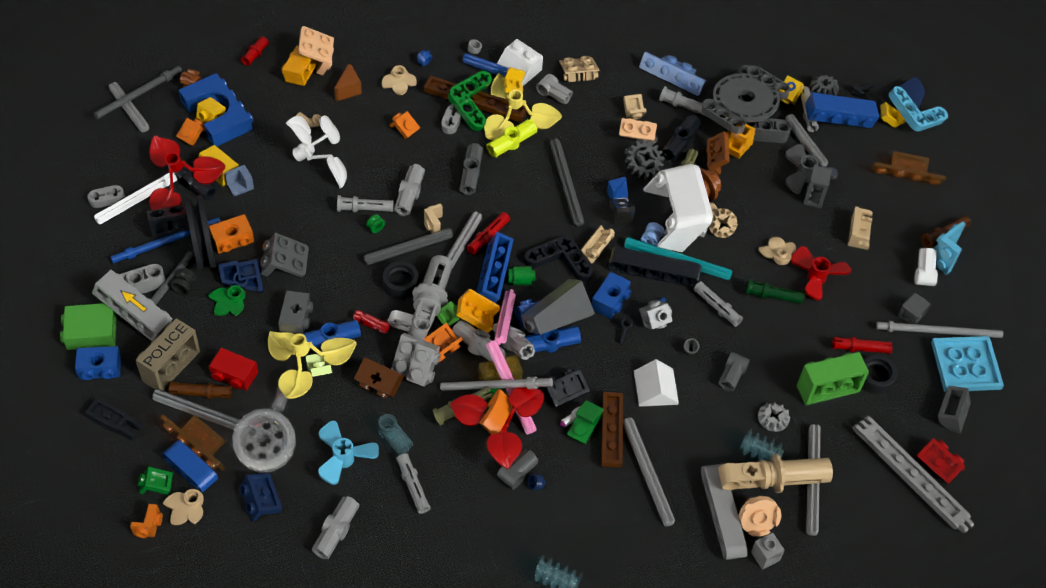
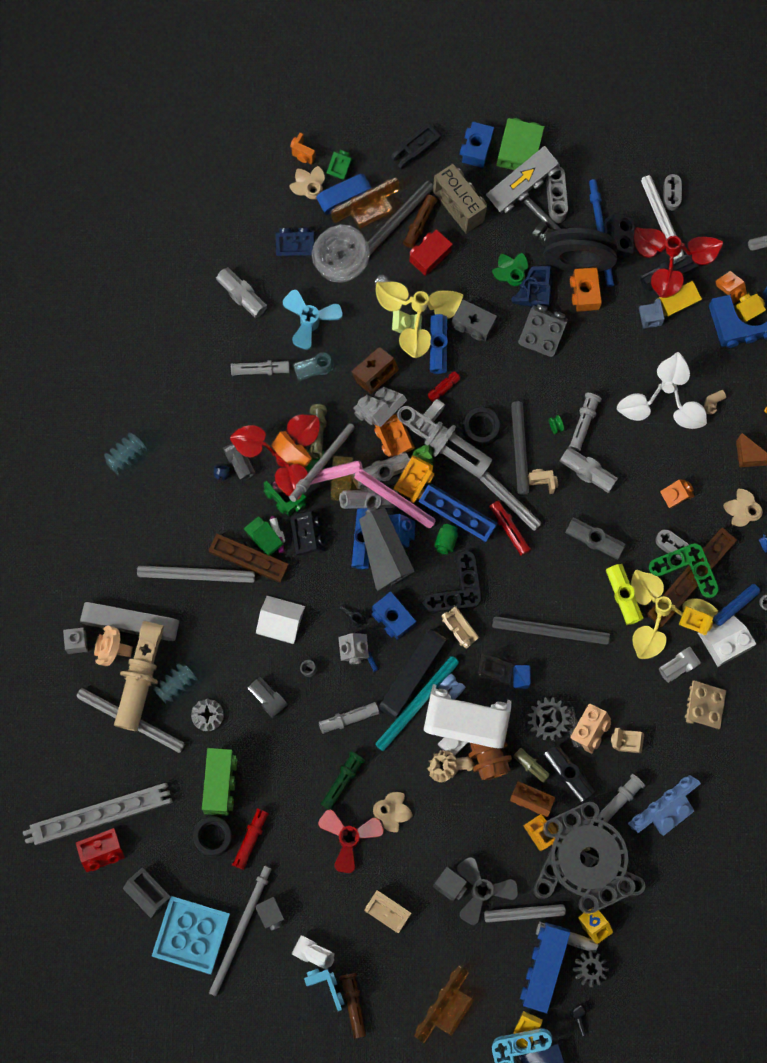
camera: 110 degrees right, 20 degrees up
(548, 415) = (289, 507): none -> green bracket

